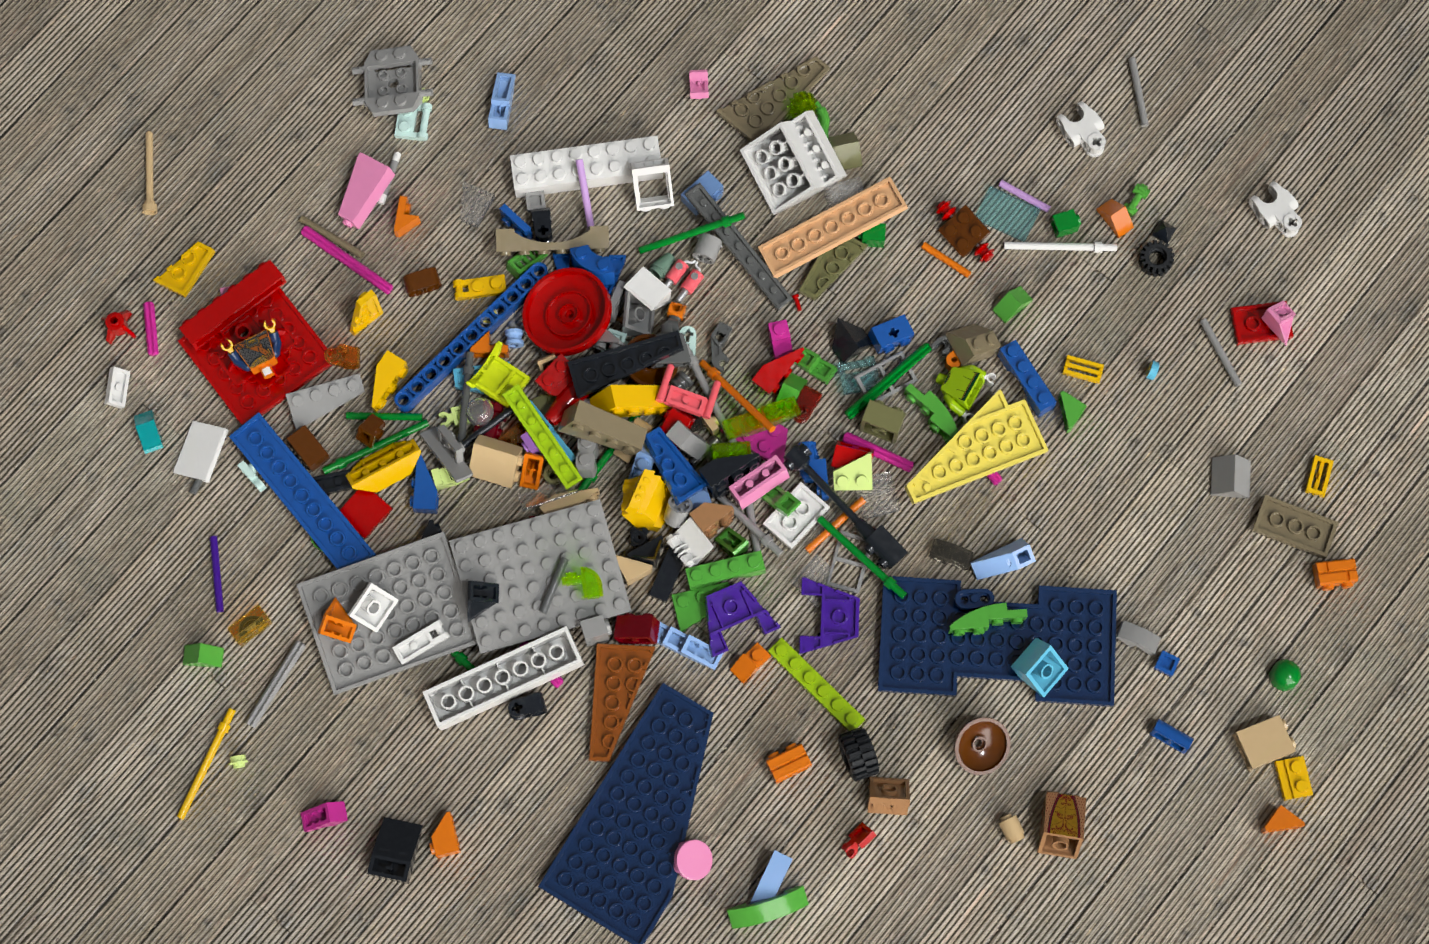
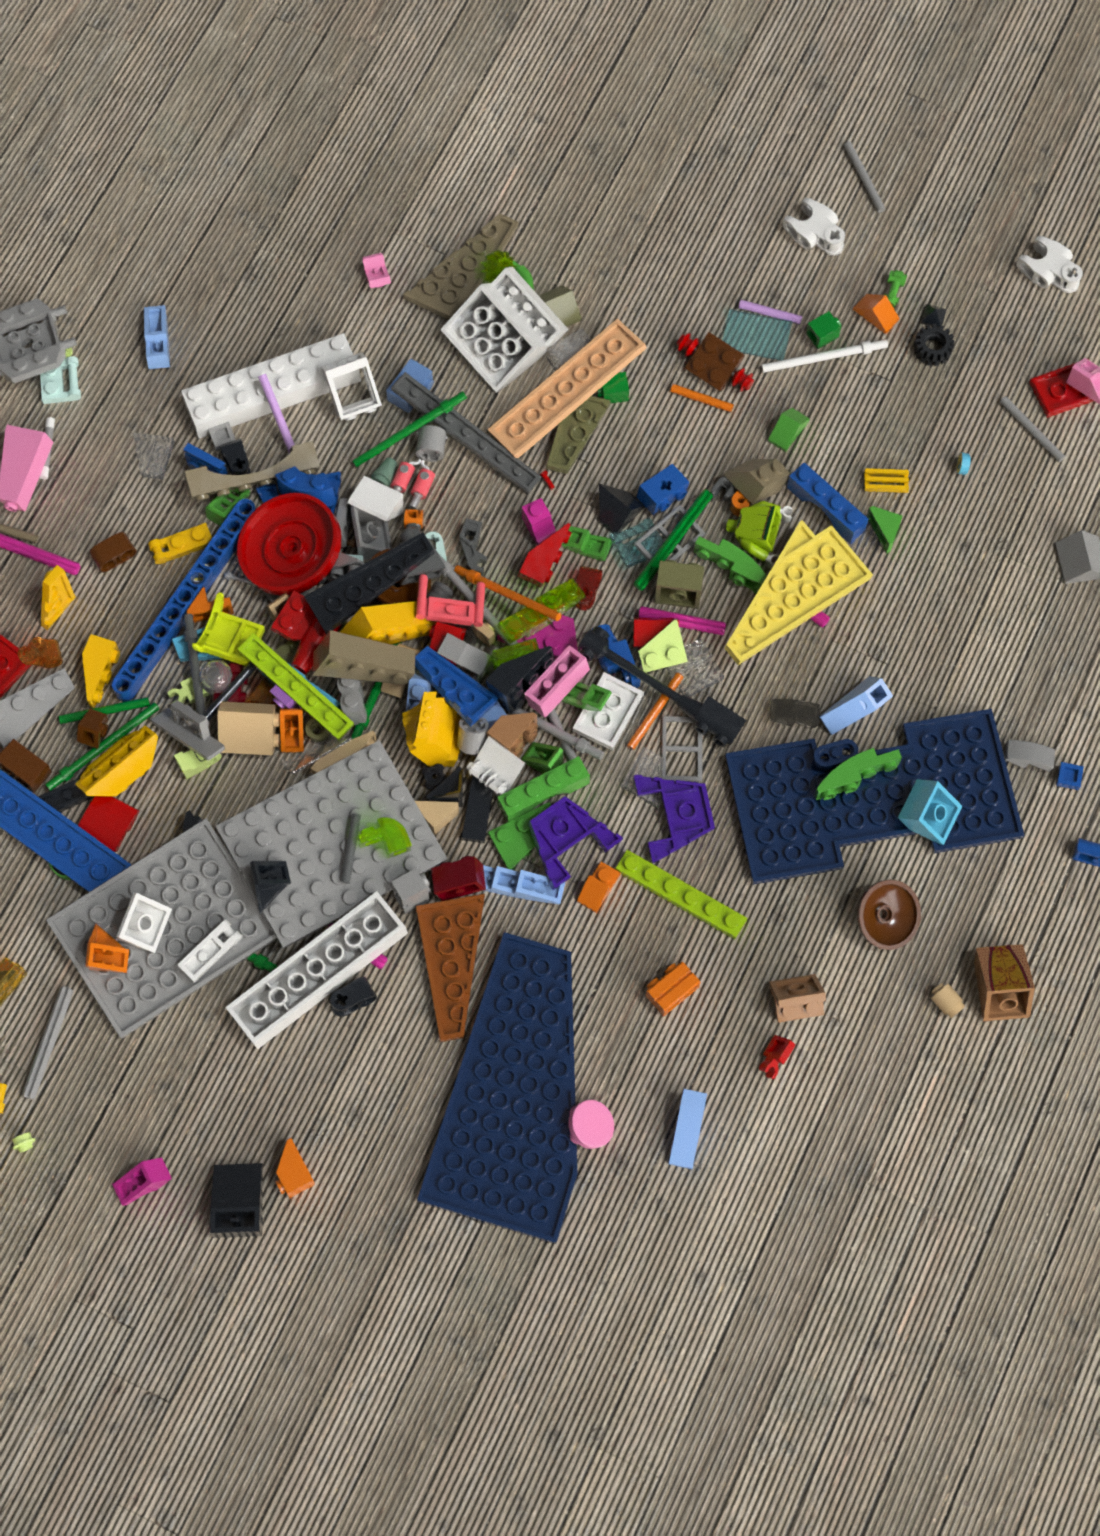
camera: 15 degrees left, 5 degrees down
(404, 221) = (76, 489): orange slope -> none
(425, 493) = (174, 784): blue slope -> none
(514, 338) = (234, 589): light blue wheel -> none
(768, 909) = (692, 1160): bright green slope -> none
(791, 387) = (566, 570): bright green slope -> none
(858, 754) = (751, 956): black tyre -> none
(889, 582) = (734, 758): green bar -> none

